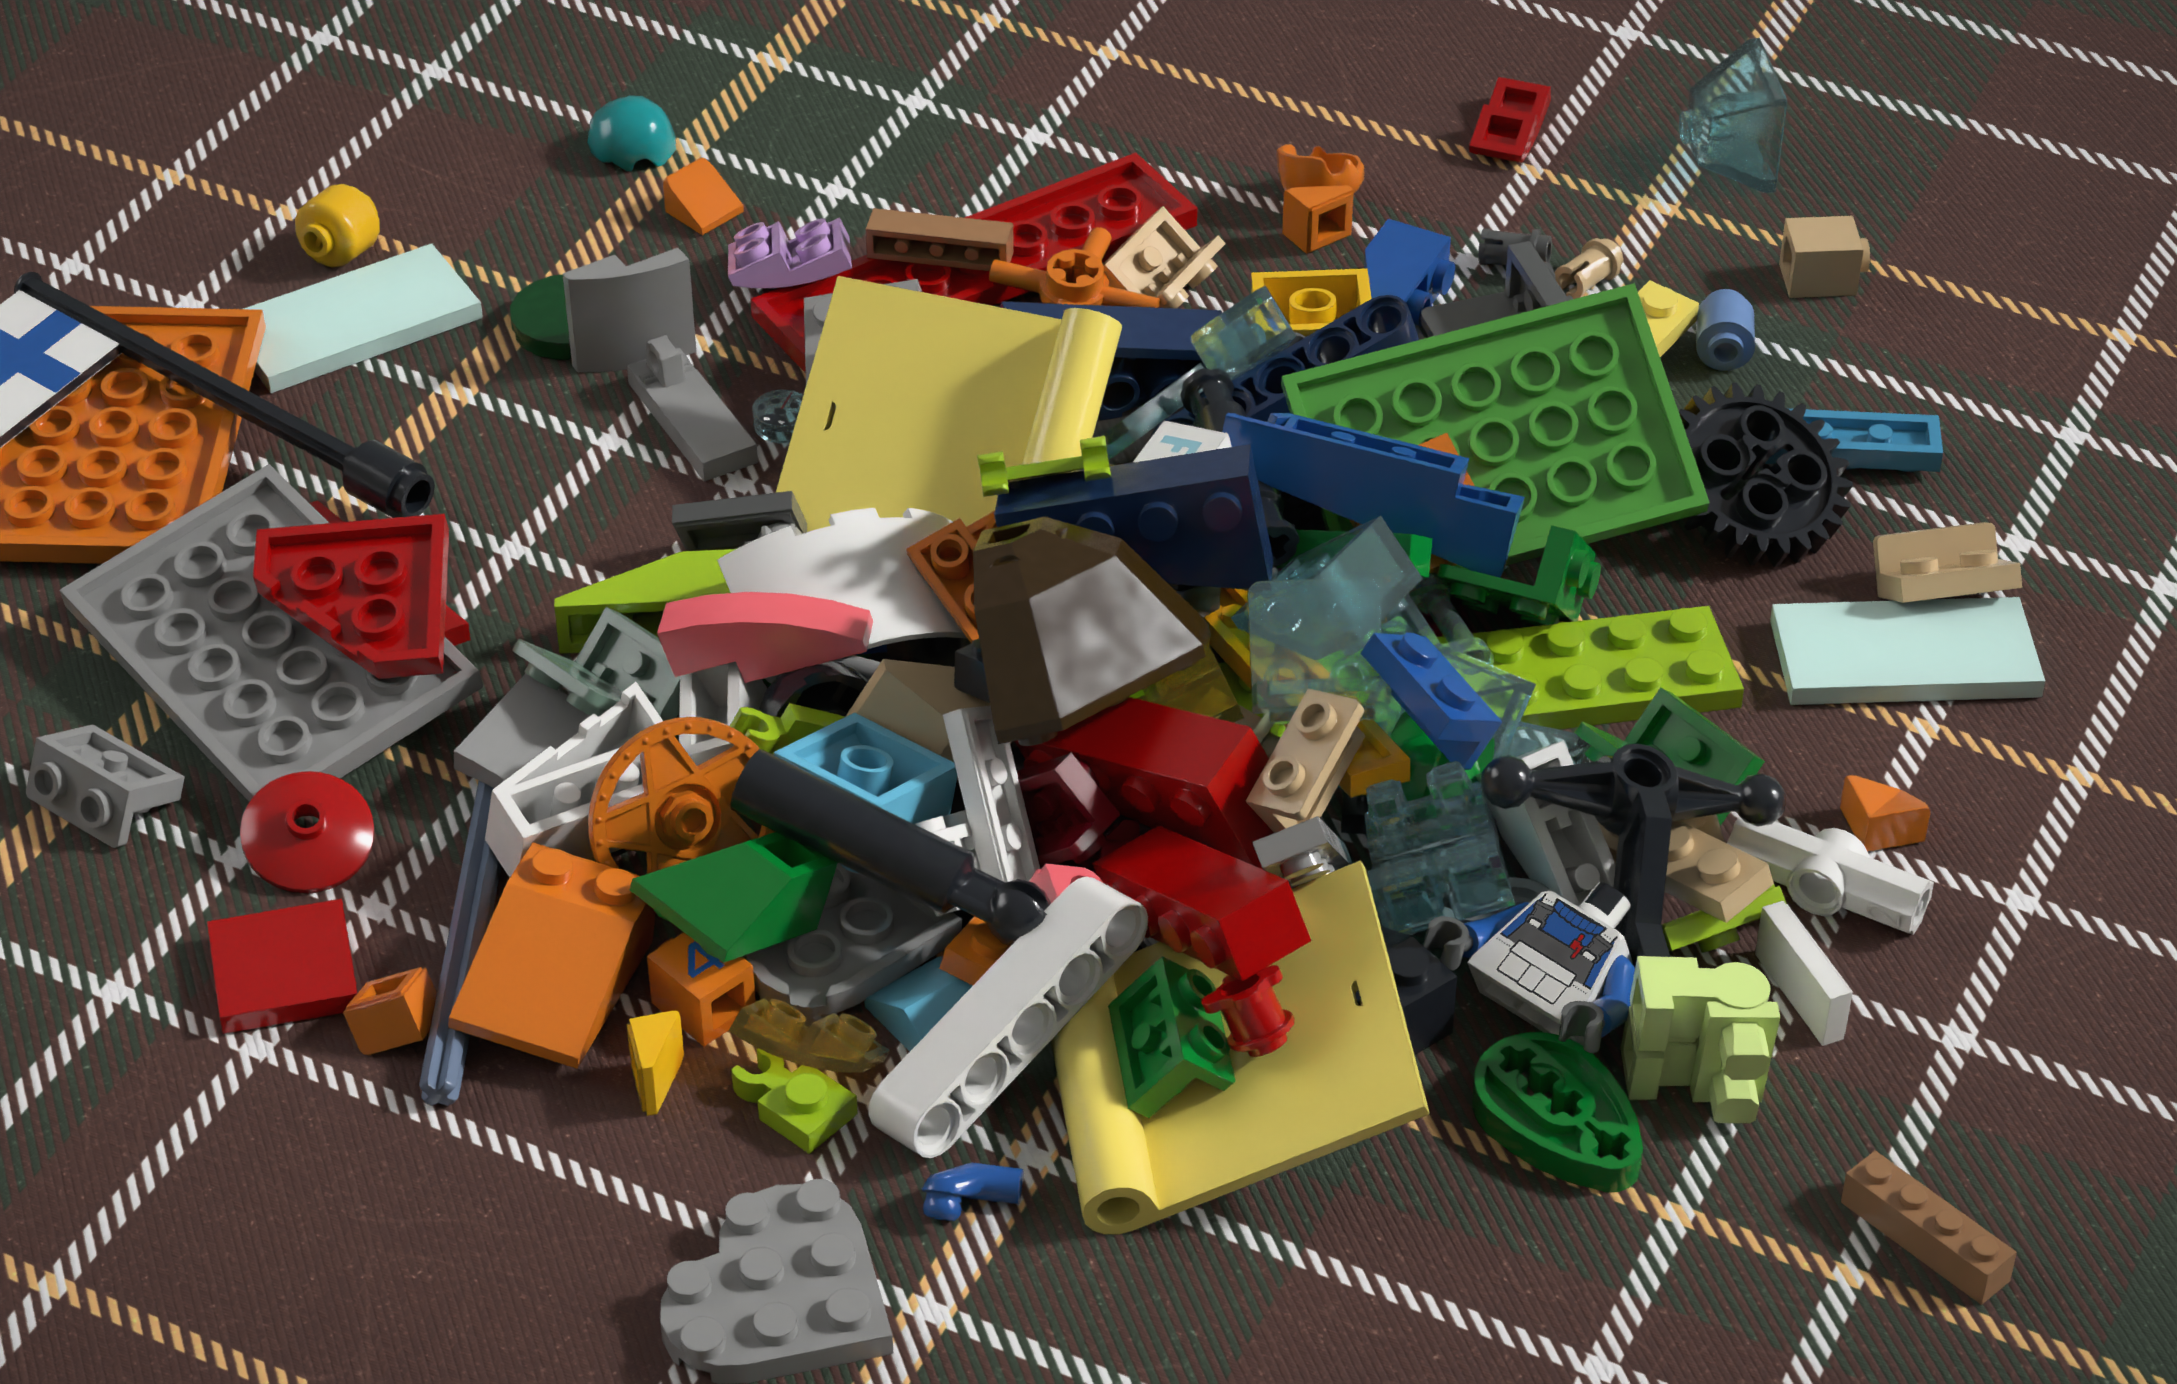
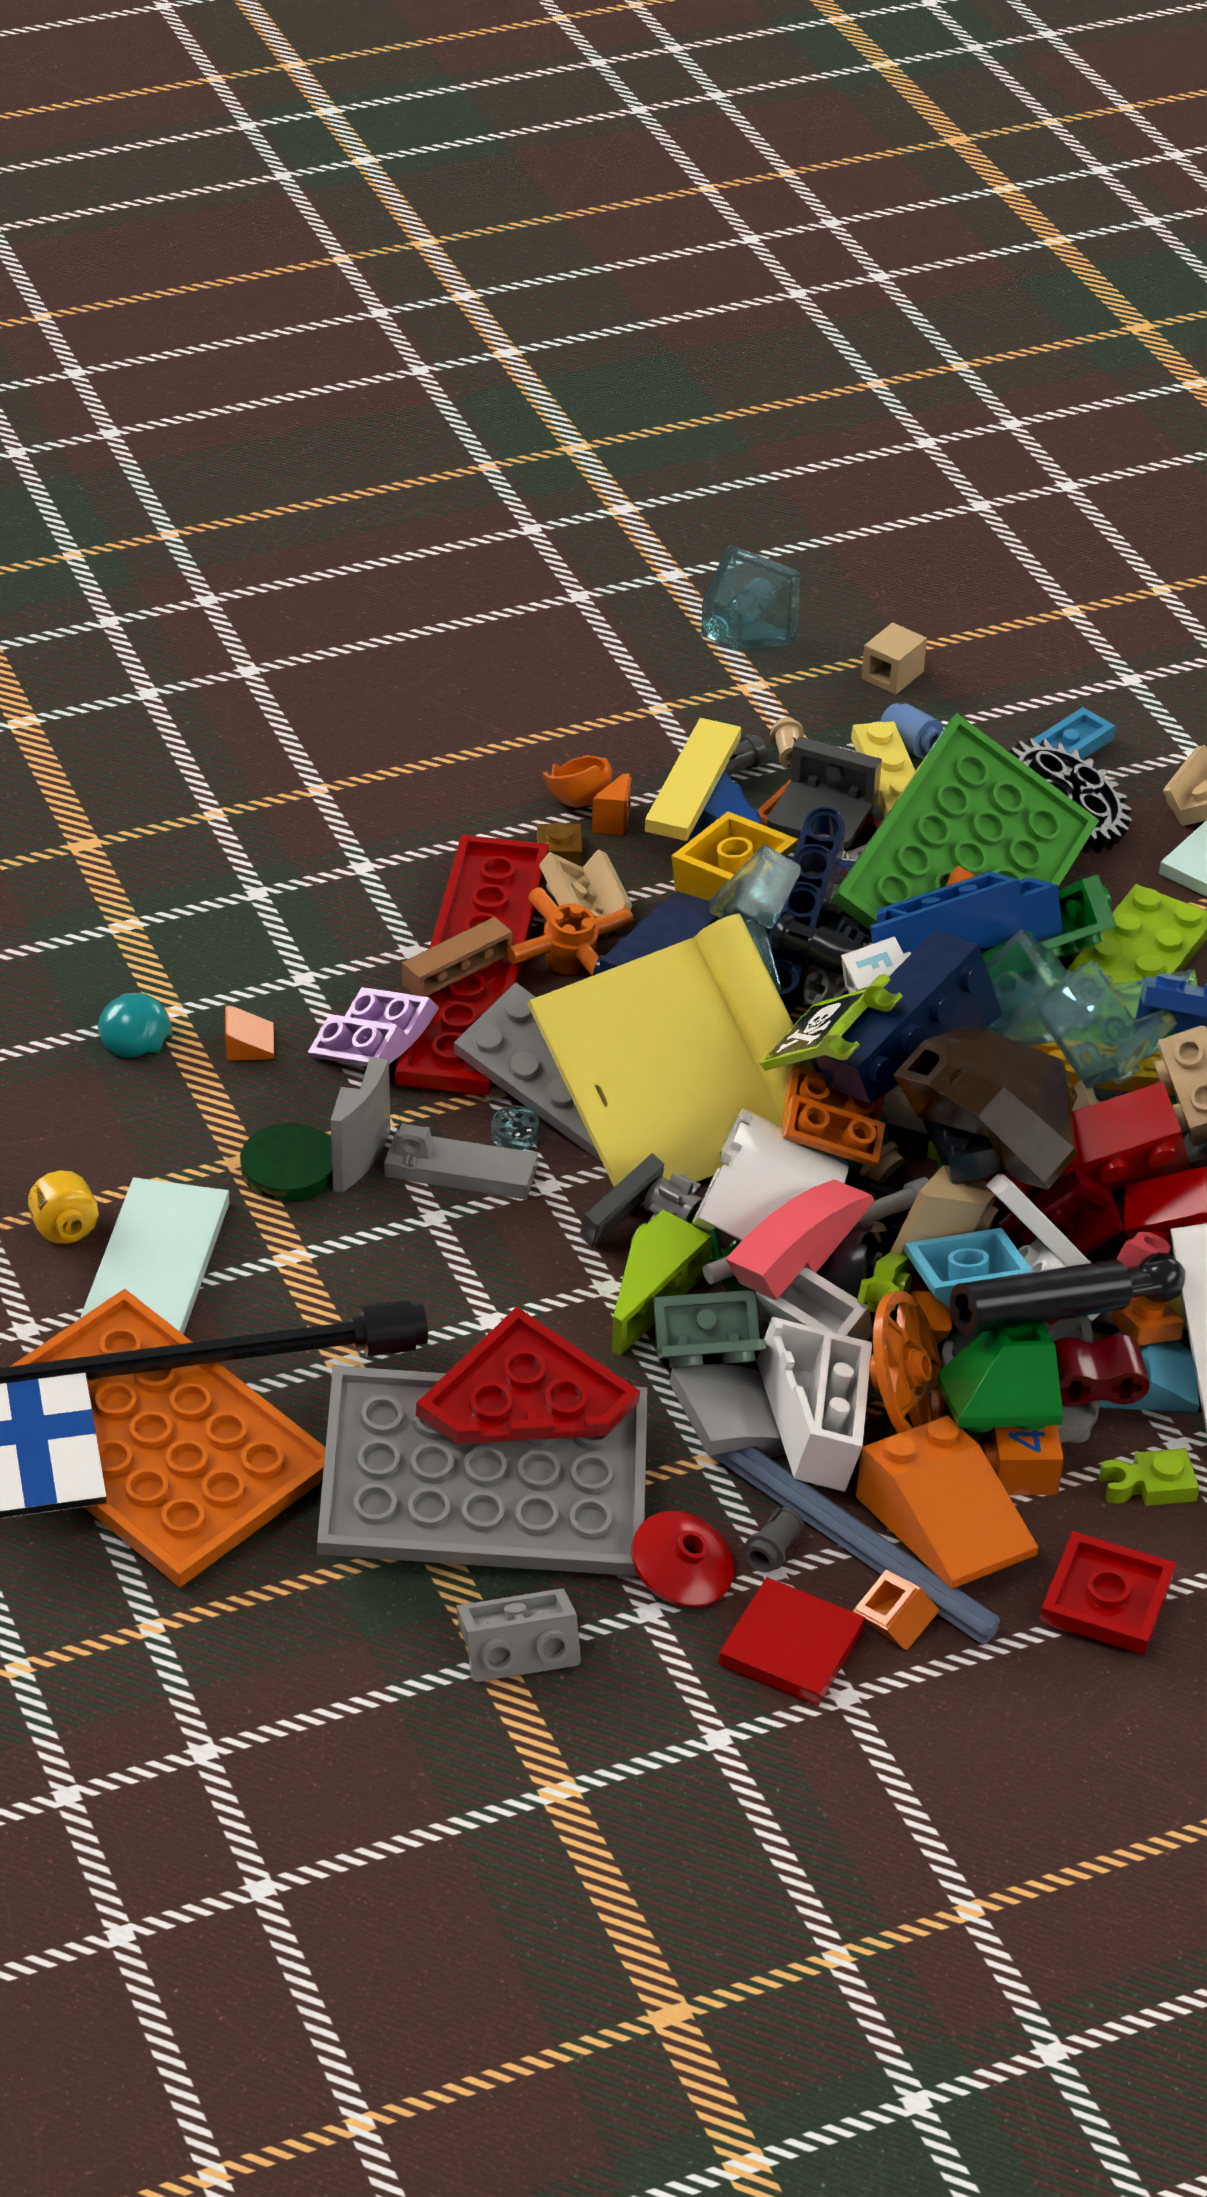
camera: 50 degrees left, 0 degrees up
(399, 877) = (767, 1548): none -> dark grey pin
(576, 1147) = (1108, 1592): none -> red plate
(655, 1056) = (1070, 1511): yellow slope -> none
(829, 1044) = (1126, 1438): clear yellow slope -> none
(856, 954) = (1101, 1370): none -> dark red axle
(1230, 218) = (563, 840): none -> pearl gold plate
(1393, 224) = (692, 779): none -> light yellow tile
(1511, 120) = (611, 686): red slope -> none

